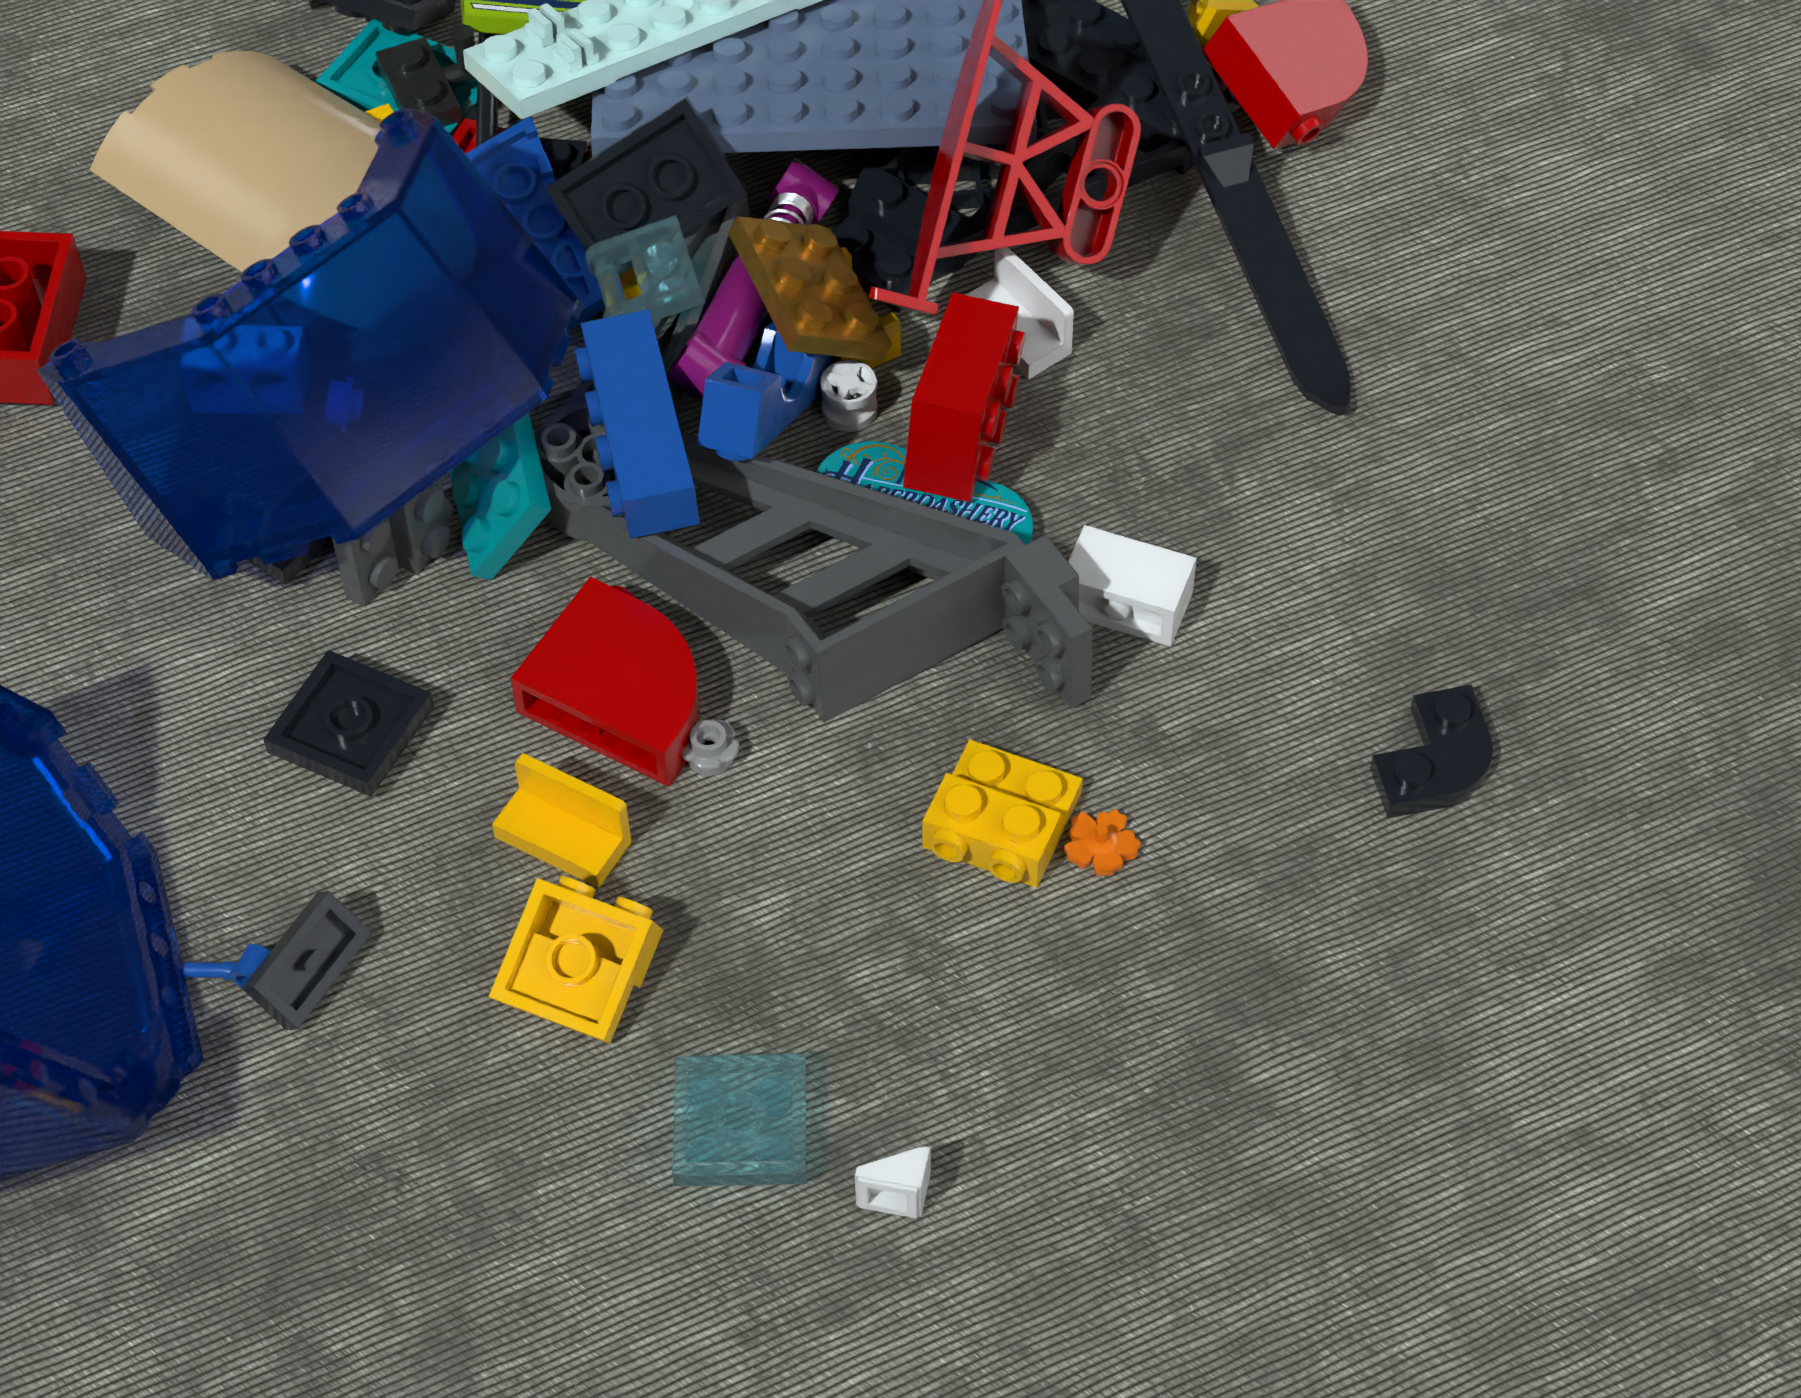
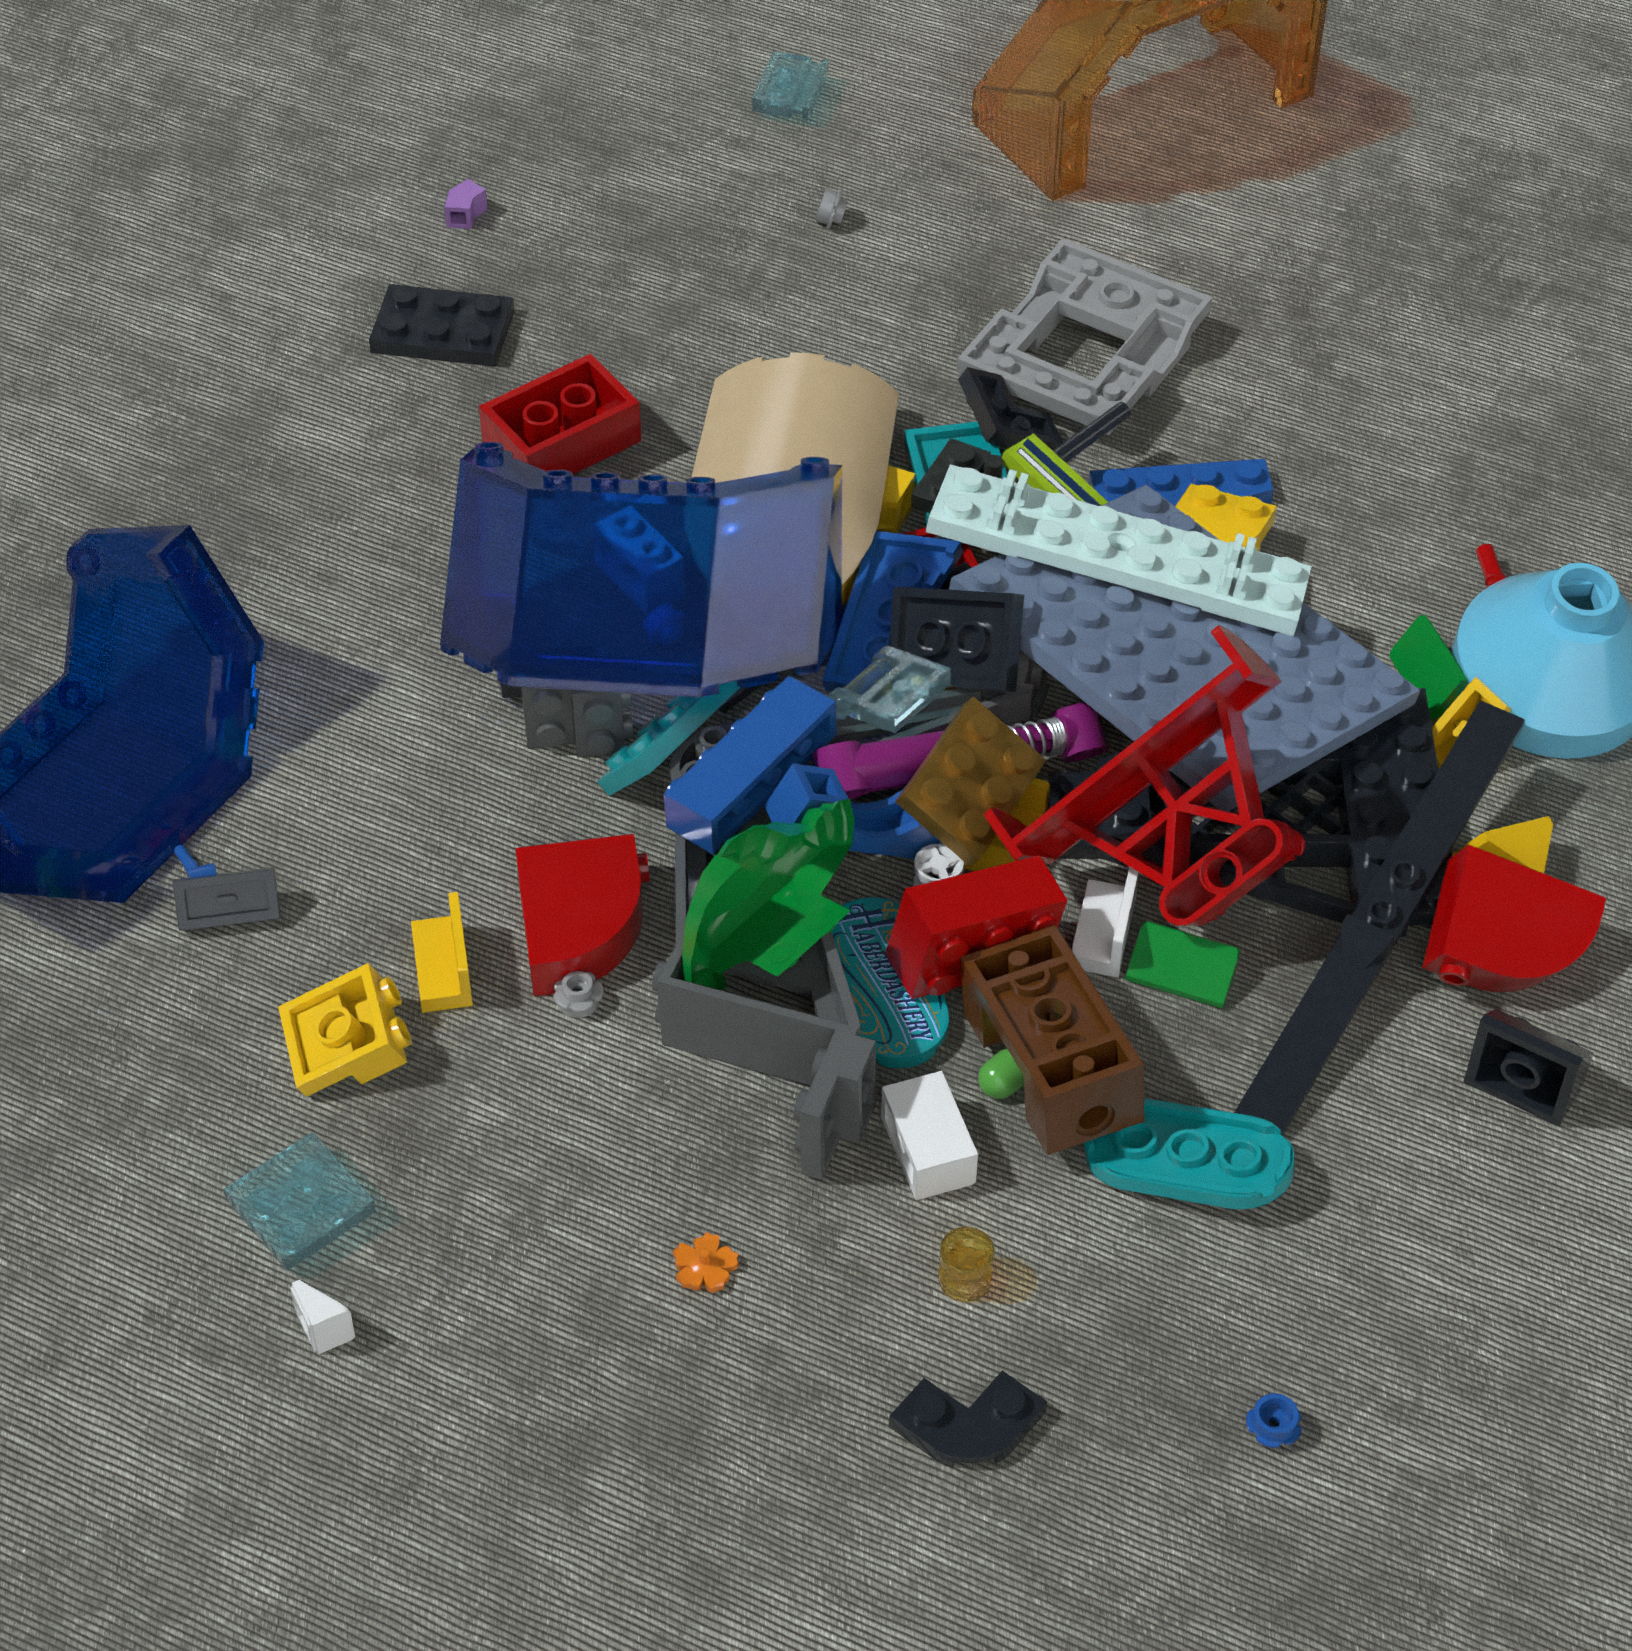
camera: 50 degrees right, 5 degrees down
(349, 723) = (422, 798): black plate -> none
(803, 517) = (765, 895): none -> green animal
(1000, 813) = (670, 1188): yellow plate -> none
(1106, 487) = (1000, 1076): none -> bright green cylinder
(1115, 296) = (1183, 964): none -> green slope
(1189, 415) = (1061, 1034): none -> reddish brown plate
(1286, 647) = (966, 1264): none -> clear yellow wheel
(1311, 423) = (1196, 1156): none -> teal tile
(1434, 151) = (1527, 1066): none -> black slope
(1618, 535) = (1276, 1408): none -> blue plate

